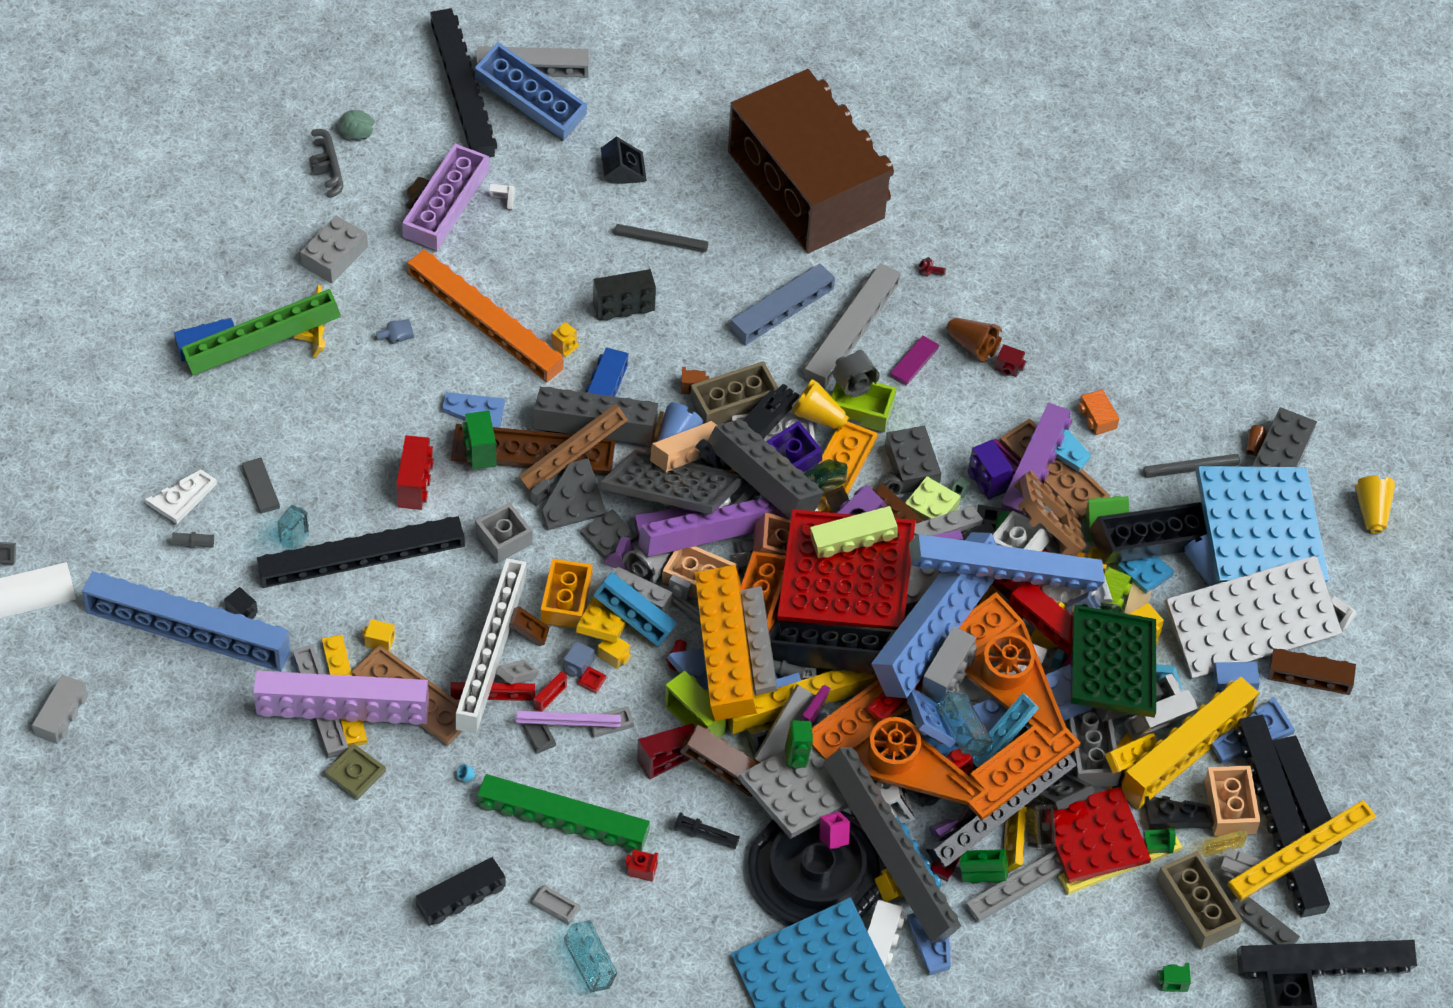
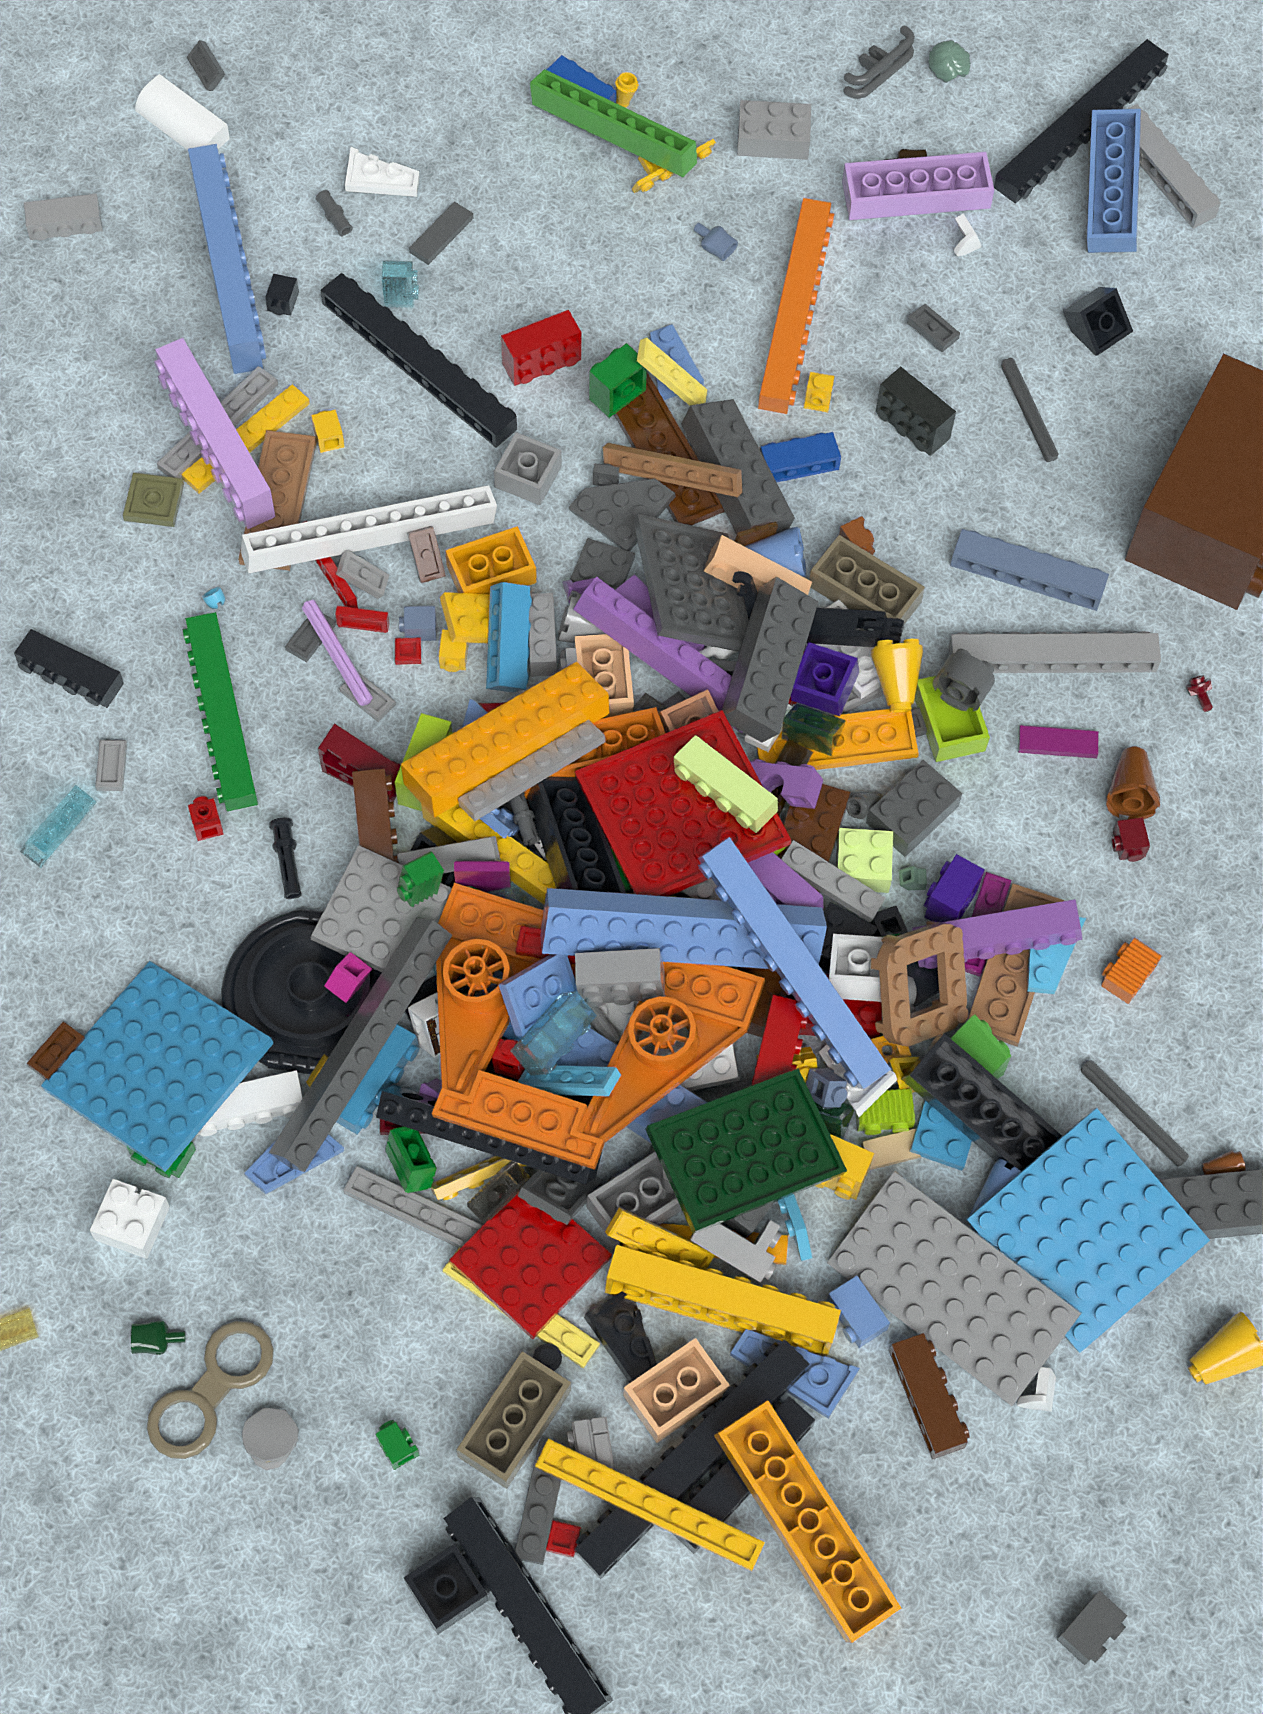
camera: 60 degrees right, 10 degrees up
(232, 309) = (626, 87): none -> yellow cone
(500, 406) = (670, 373): none -> light yellow tile
(560, 252) = (933, 327): none -> dark grey plate
(1160, 840) = (569, 1335): green tile -> none
(1162, 859) = (548, 1355): none -> black plate
(1221, 843) = (615, 1412): clear yellow tile -> none
(1290, 917) = (563, 1538): none -> red tile
(1361, 770) = (807, 1522): none -> light orange brick

